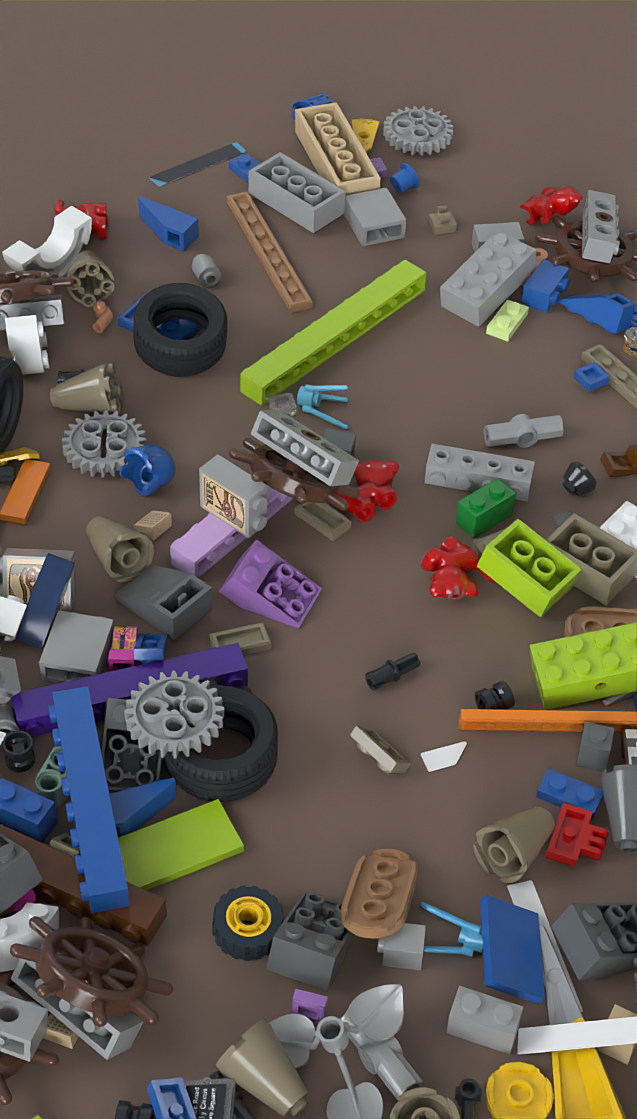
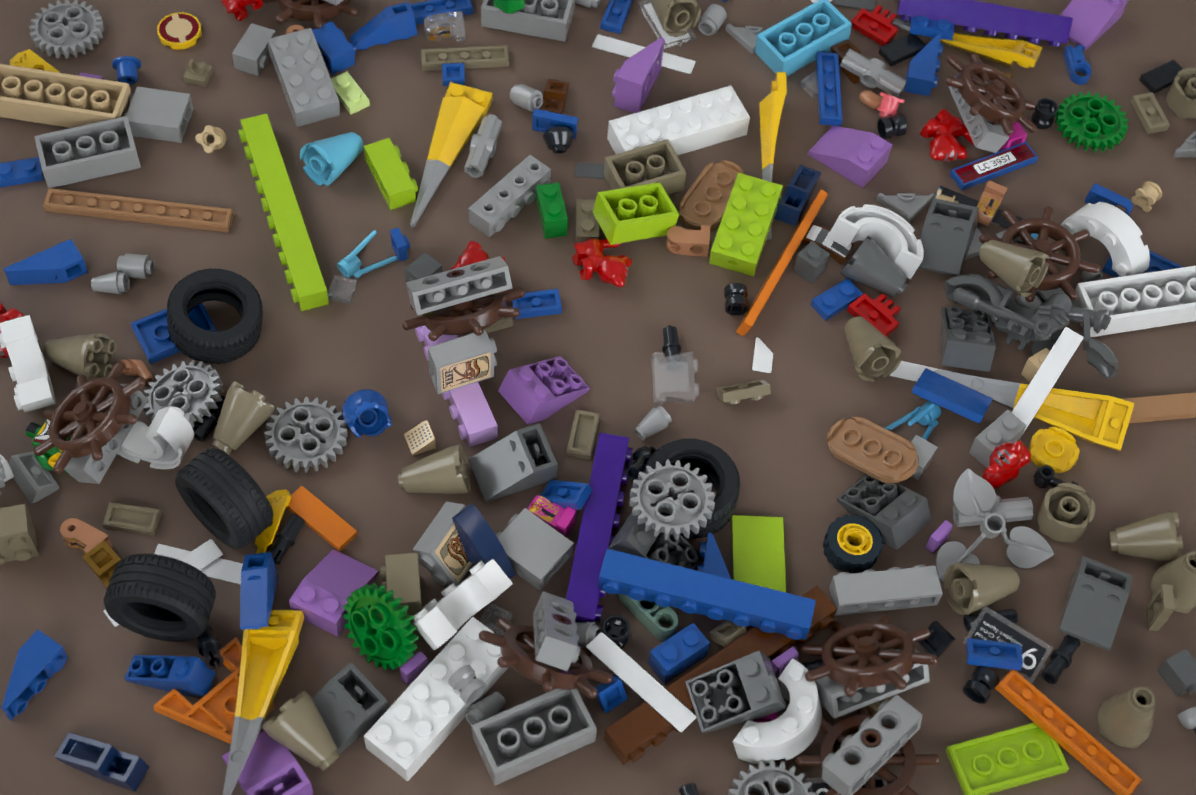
camera: 65 degrees left, 10 degrees up
(67, 910) = (783, 660): none -> medium lavender tile
(90, 349) = (188, 388): none -> light grey gear
(169, 1051) = (938, 640): none -> black plate
(179, 266) = (111, 283): none -> light grey cone
(203, 973) = (885, 589): none -> light grey brick
(290, 689) = (653, 423): none -> light grey cone
(348, 679) = (674, 378): none -> clear hips
(358, 418) = (400, 244): none -> blue plate
(366, 543) = (538, 304): none -> blue plate
(374, 255) = (211, 138): none -> tan brick
(420, 333) = (330, 157): none -> medium azure cone
(434, 381) = (390, 173): none -> lime brick
(440, 1029) = (1005, 463): none -> red animal
(479, 192) = (179, 30): none -> tile
(535, 400) = (457, 121): none -> yellow plate
(536, 627) = (688, 241): none -> nougat leg
(595, 463) = (544, 120): none -> blue plate
(609, 436) = (526, 97): none -> light grey brick

